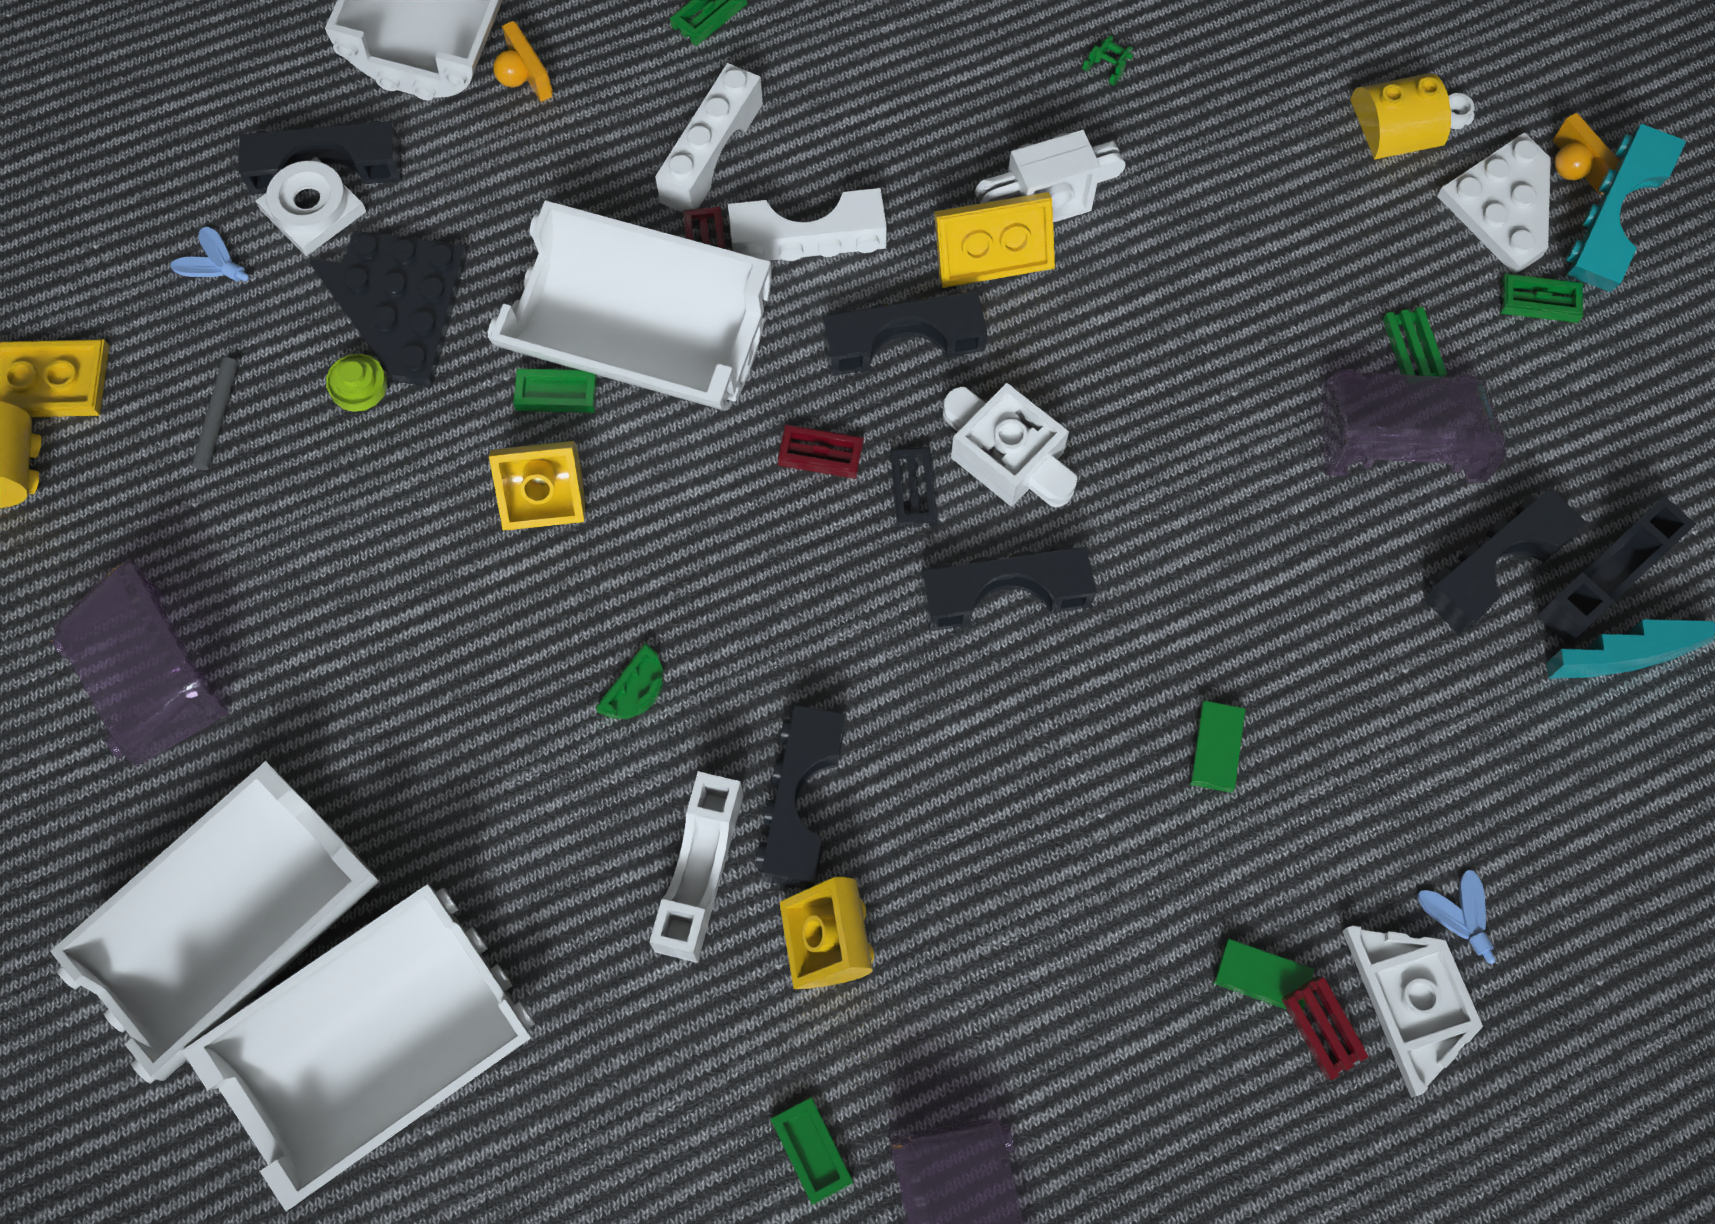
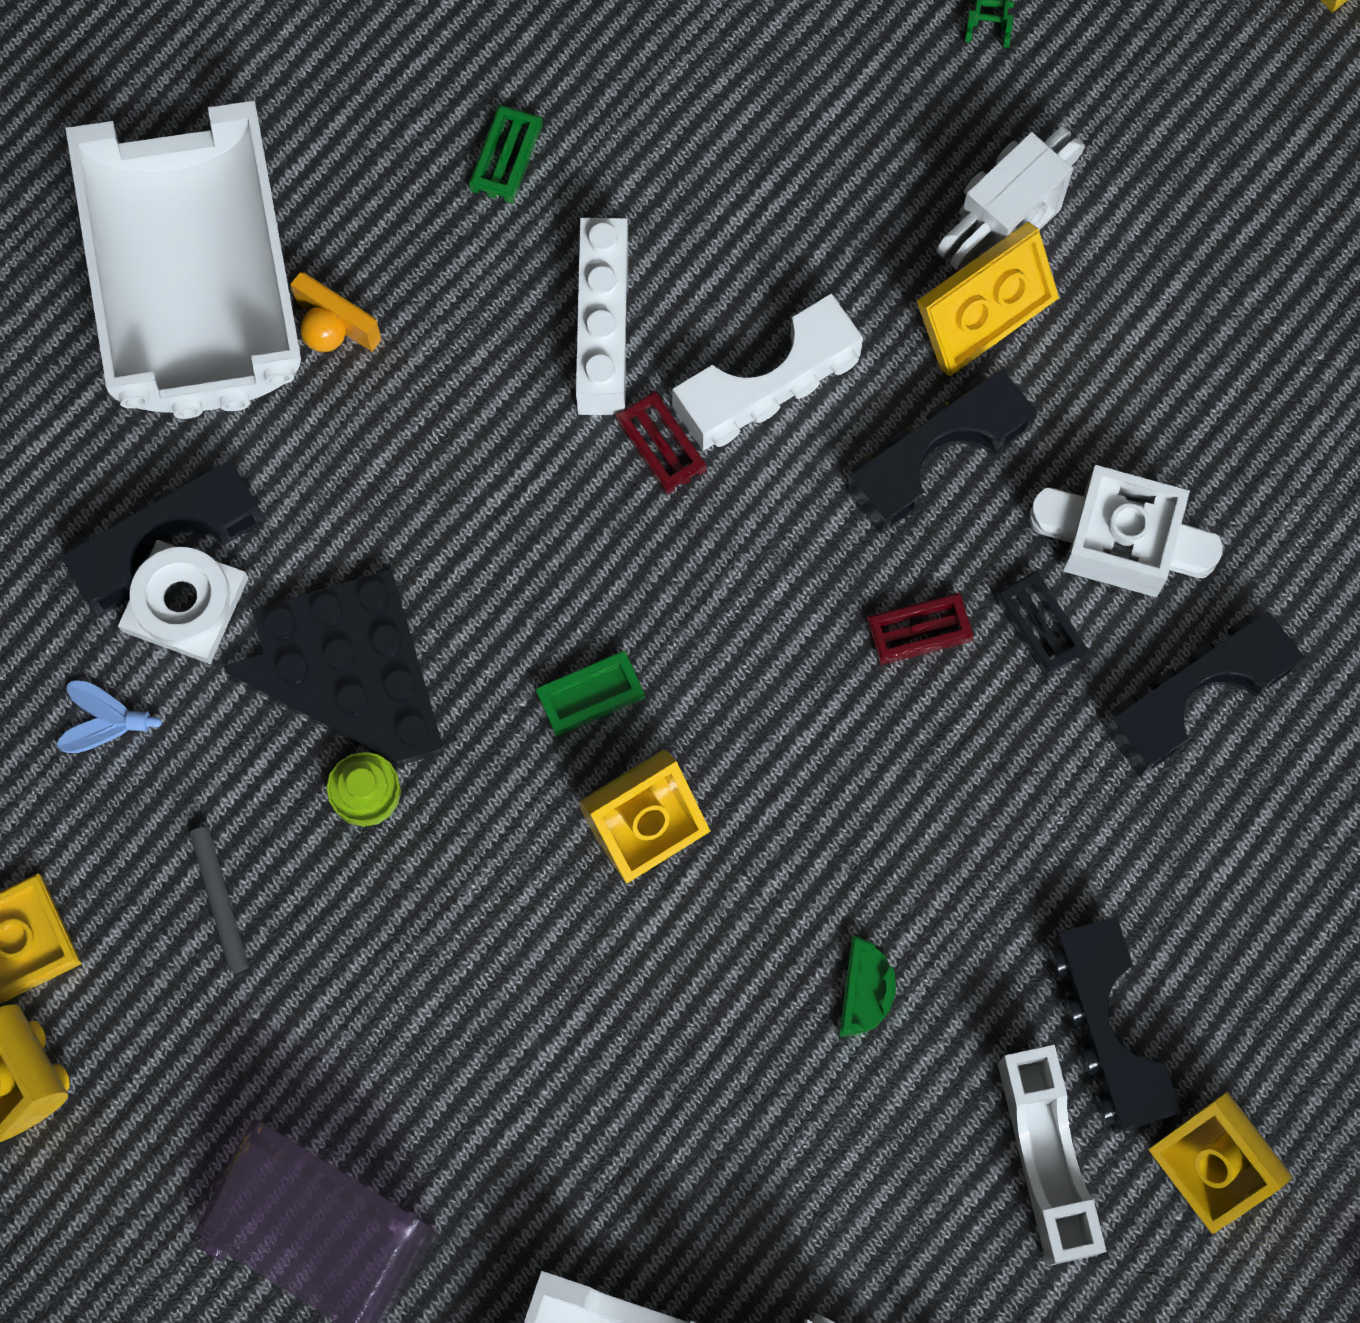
camera: 25 degrees left, 5 degrees up
(638, 306) = (641, 562): white cylinder -> none

